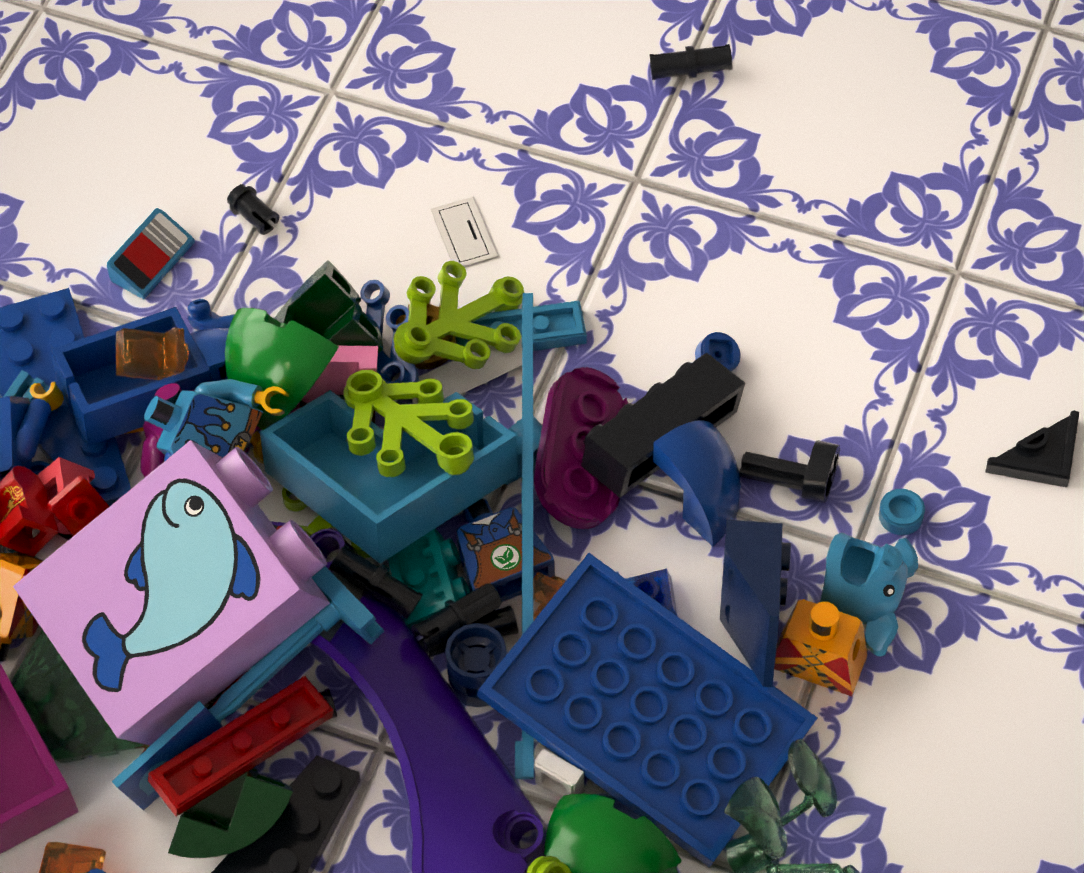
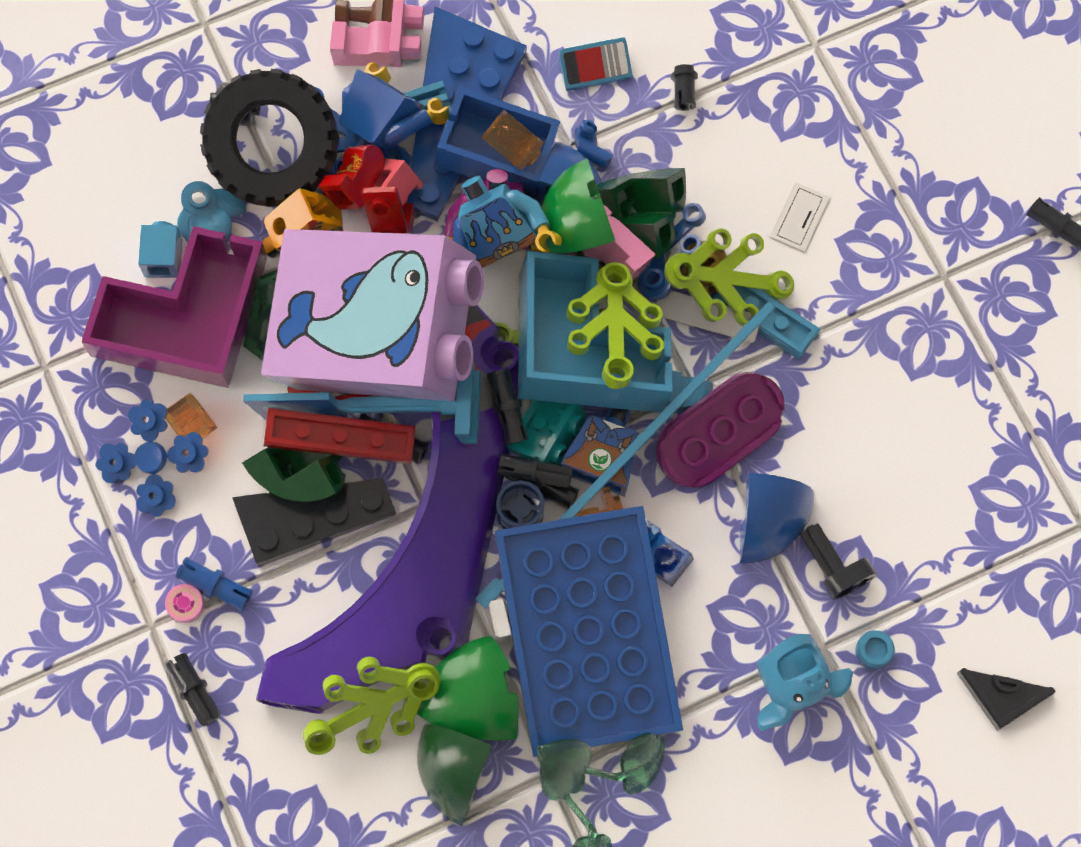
camera: 40 degrees right, 15 degrees up
(623, 448) = (816, 461): black brick -> none
(720, 347) = (868, 443): blue tile -> none
(754, 591) = (723, 615): dark blue slope -> none
(822, 646) = (729, 691): light orange torso -> none

